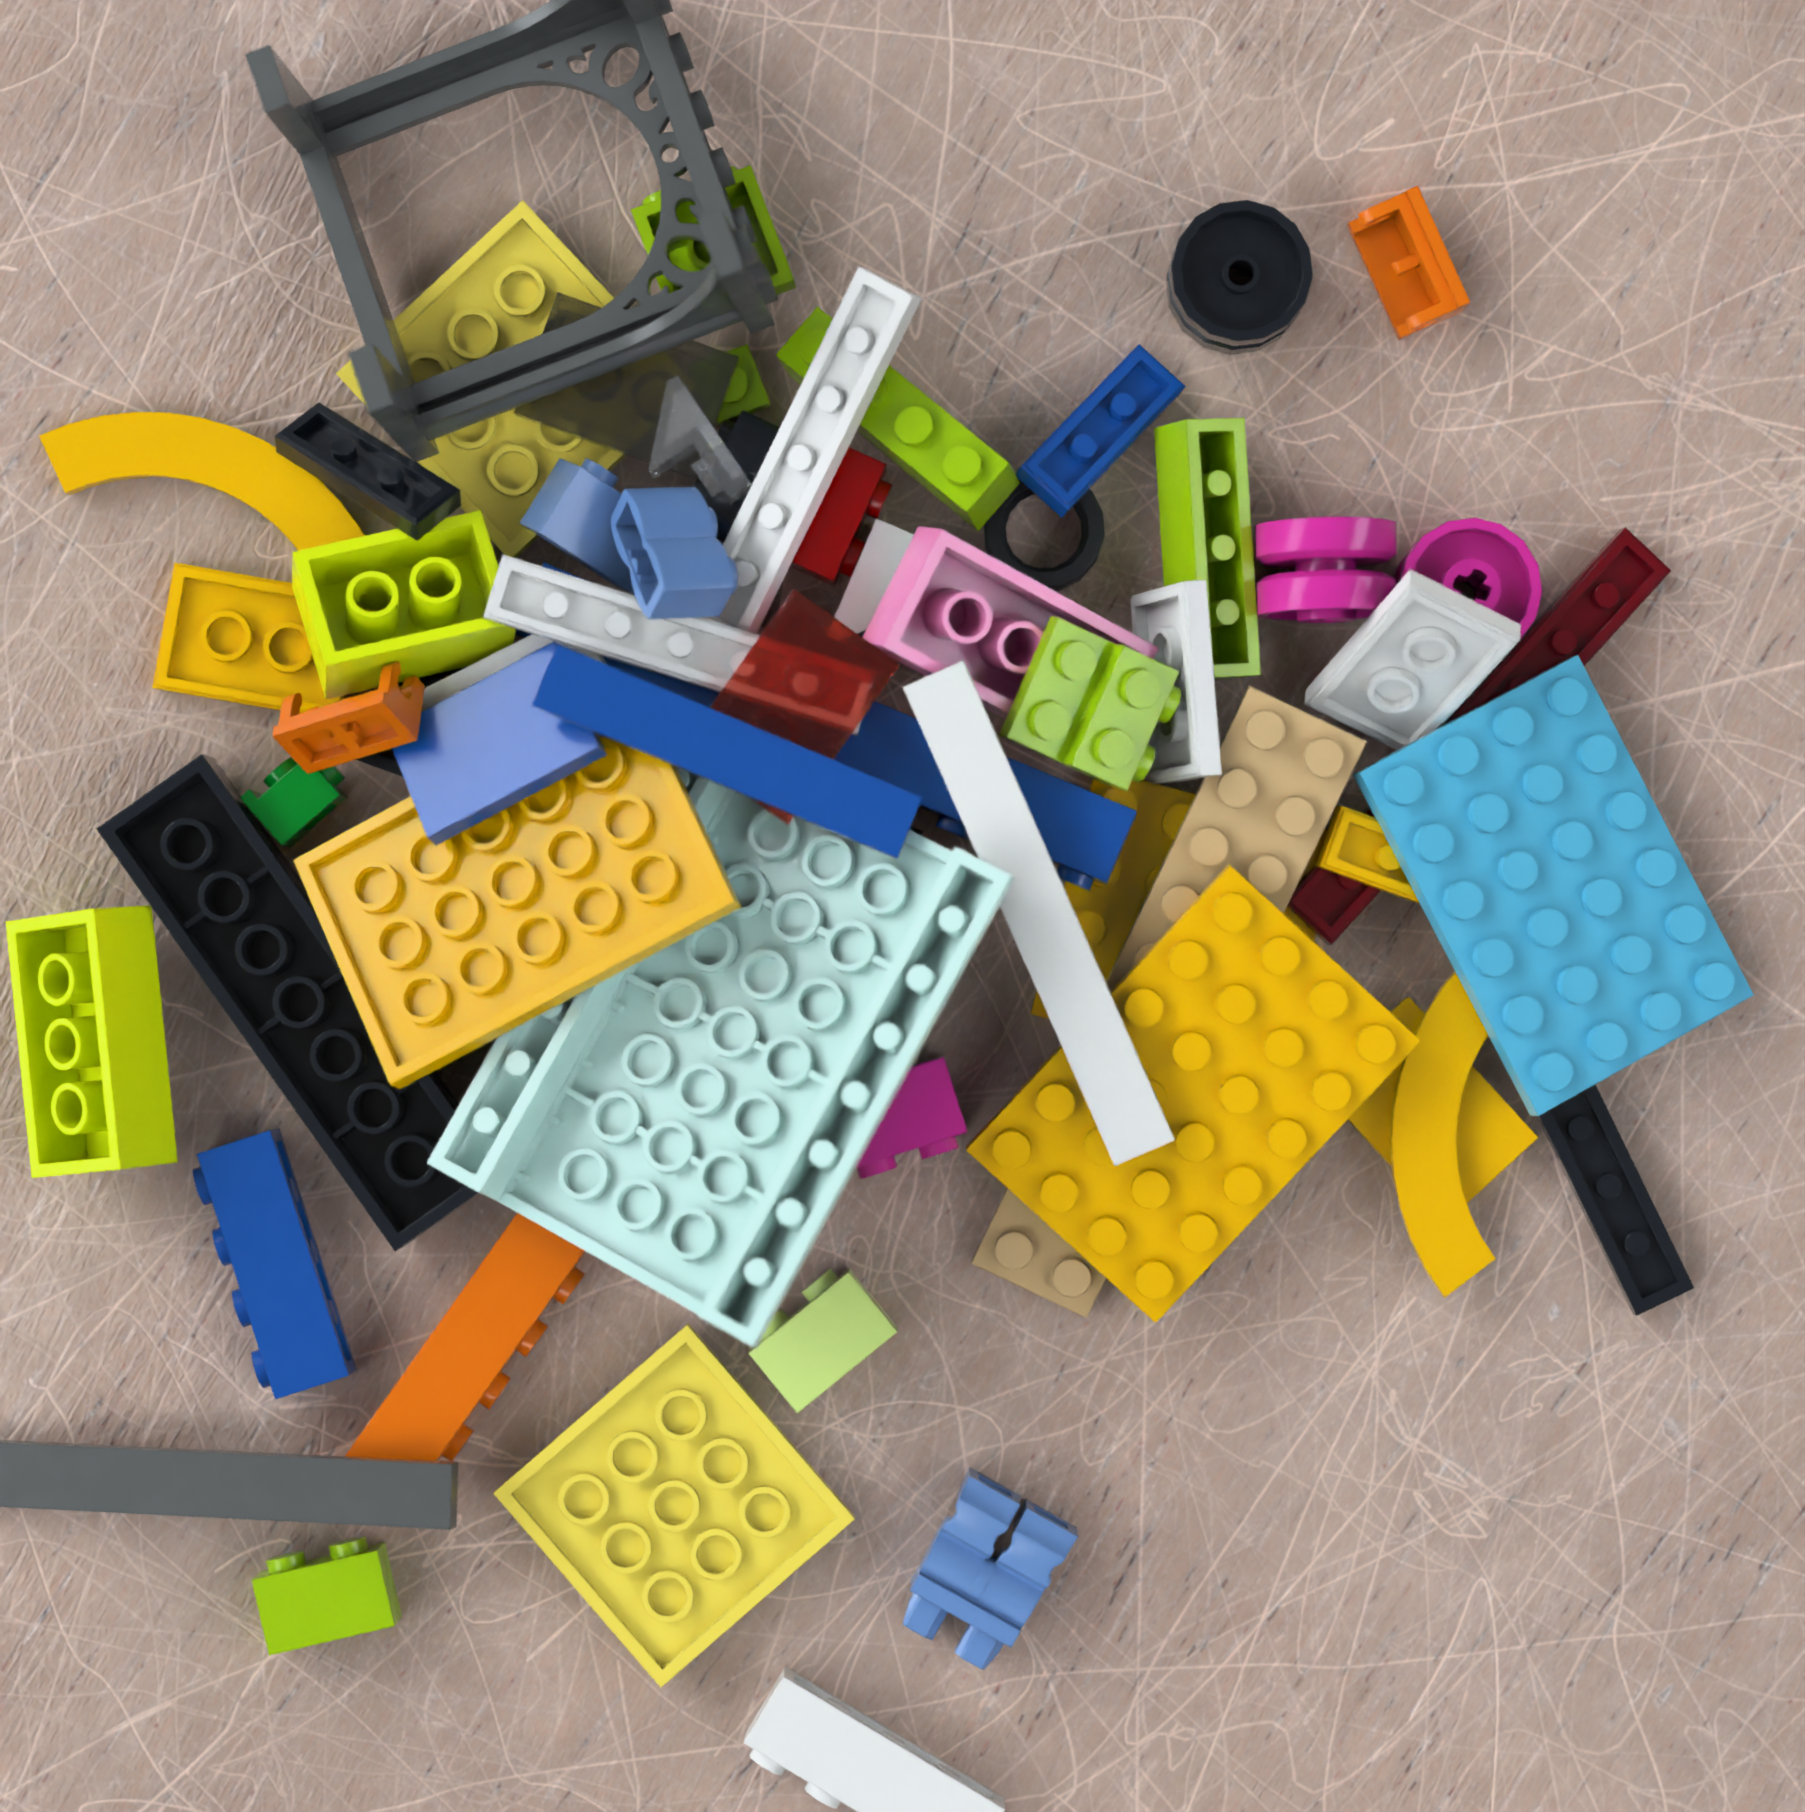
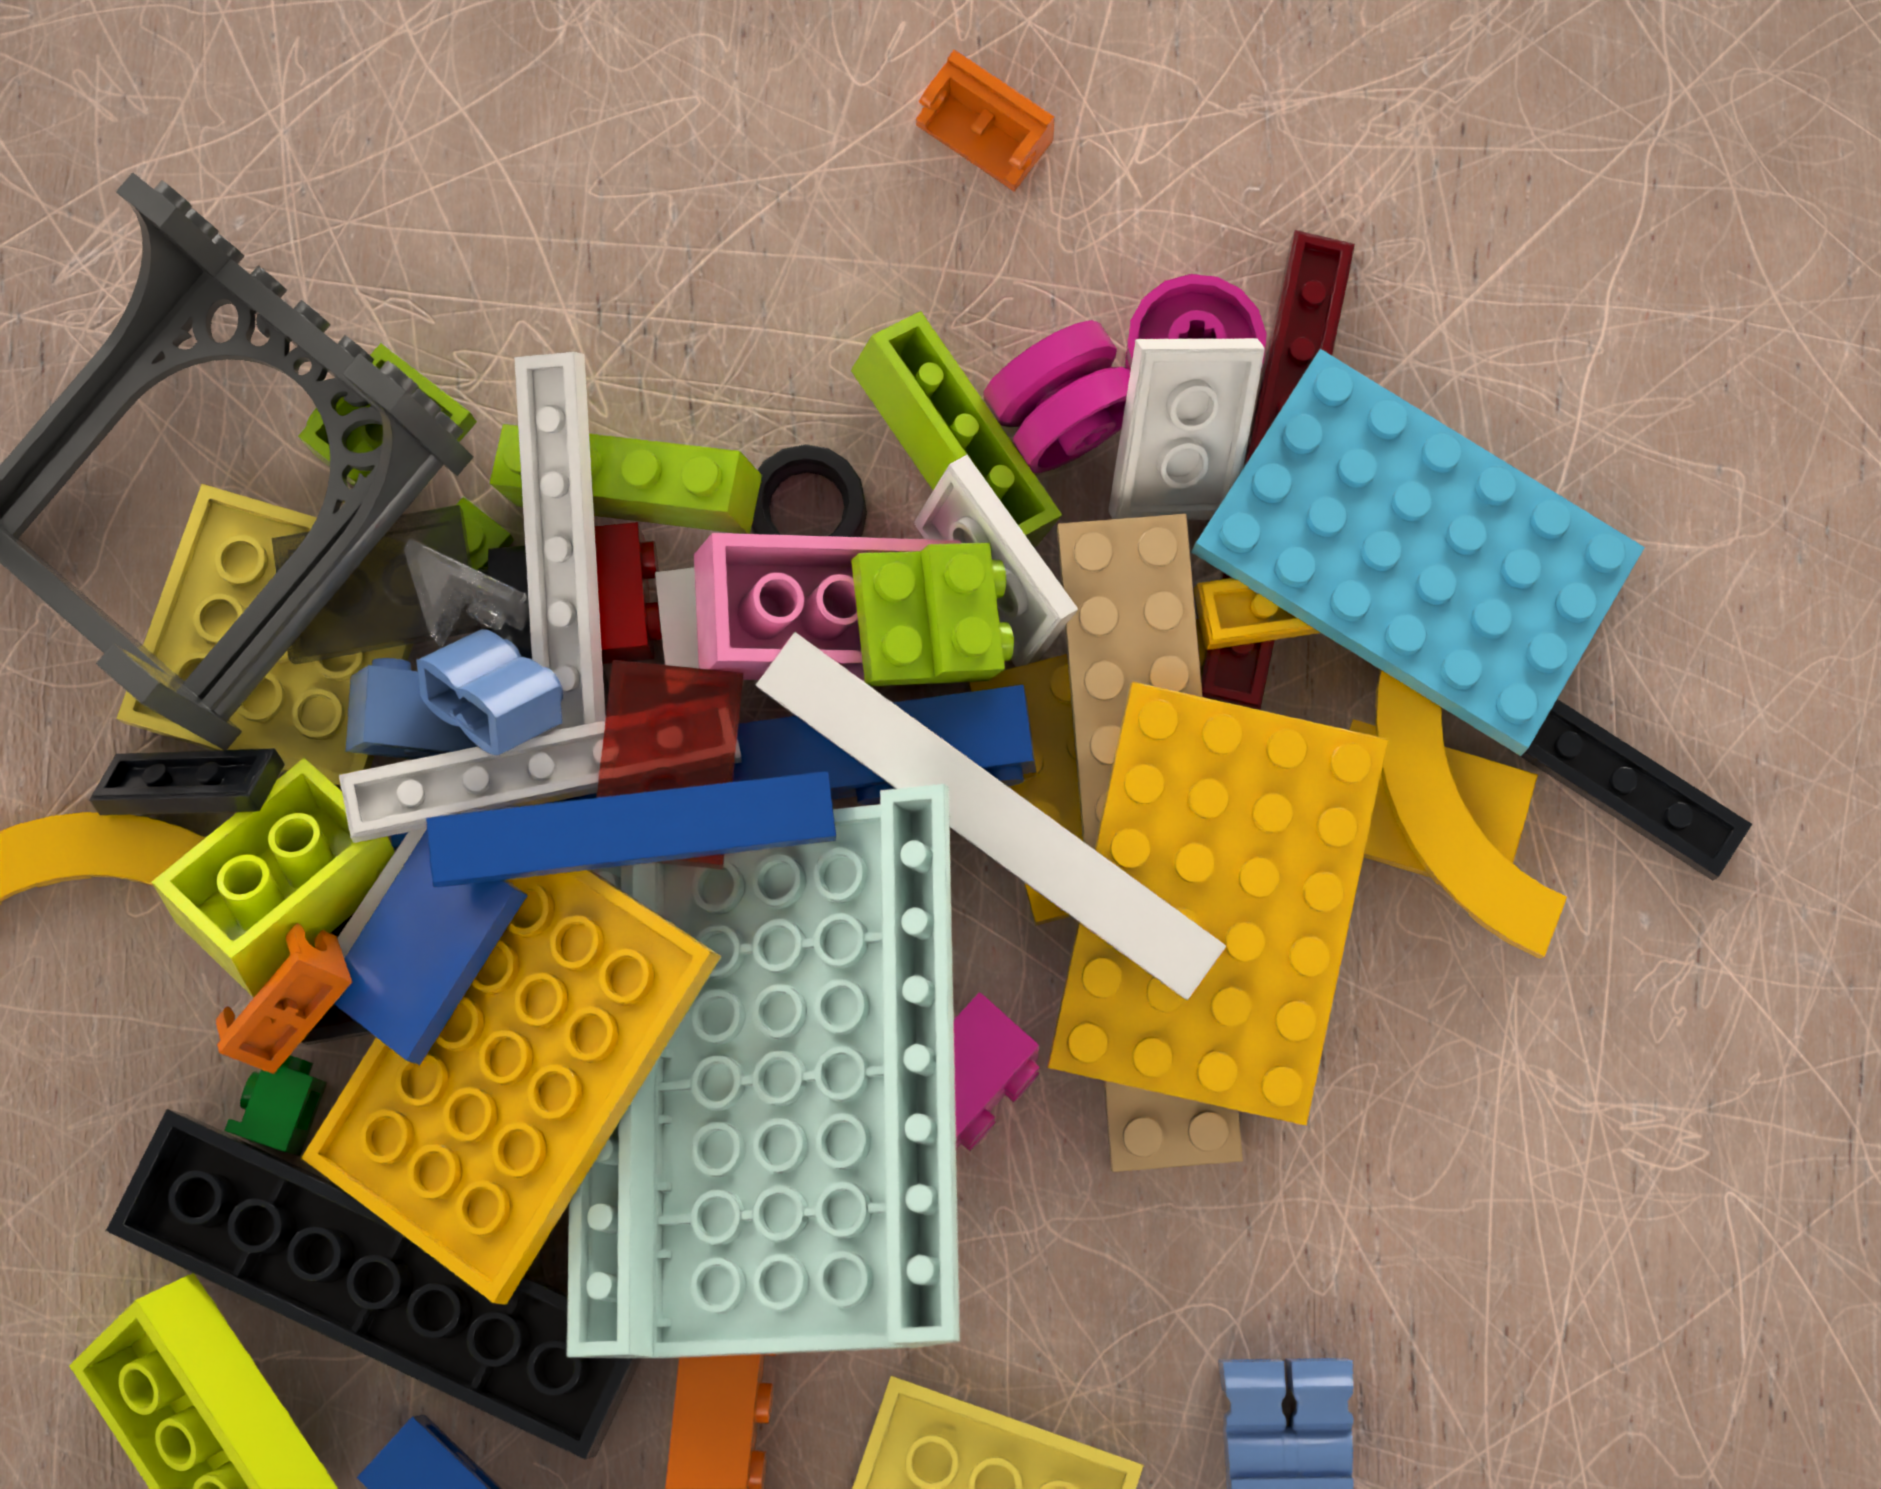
camera: 25 degrees left, 10 degrees down
(236, 641) = (149, 1000): yellow tile -> none
(822, 1337) = (1018, 1317): yellowish green brick -> none
(1100, 430) = (805, 396): blue tile -> none
(1255, 243) = (849, 205): black wheel -> none

